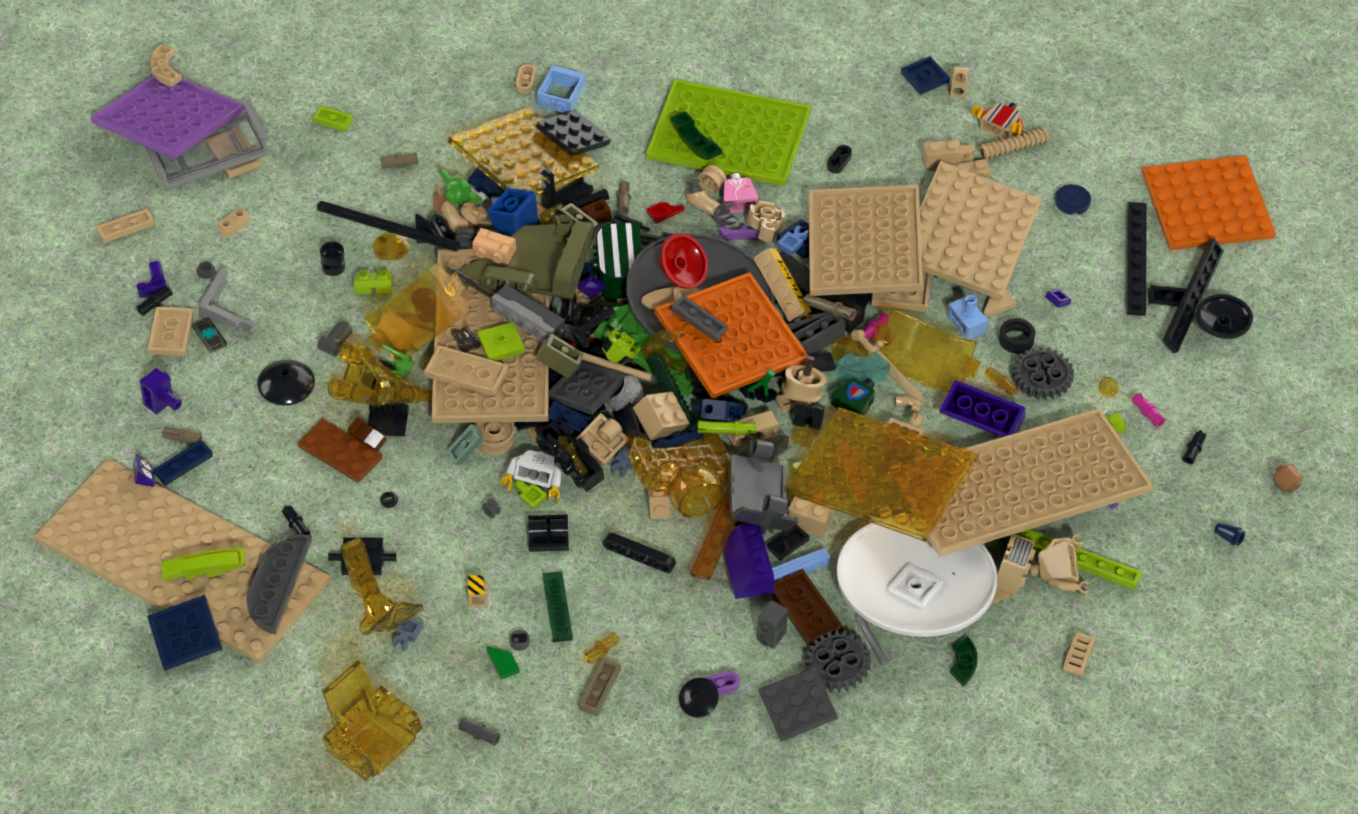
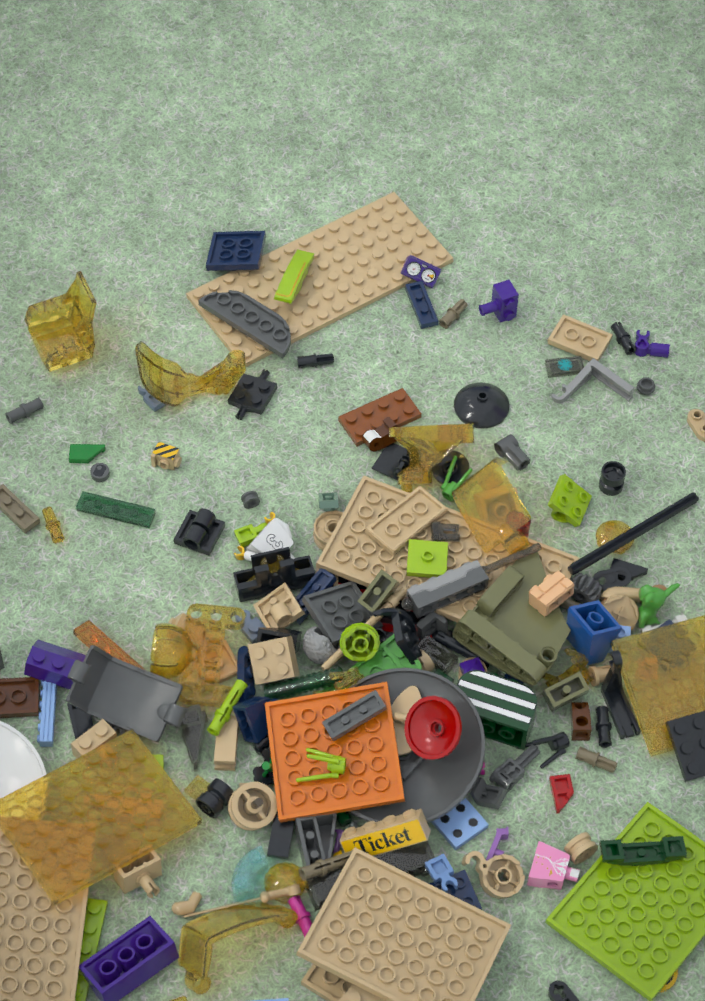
camera: 115 degrees right, 5 degrees up
(389, 504) = (305, 438): black piece -> none
(639, 552) = (136, 591): black beam -> none
(701, 200) = (549, 831): piece -> none
(748, 321) = (335, 764): none -> lime plant
(854, 396) = (216, 853): dark green torso -> none

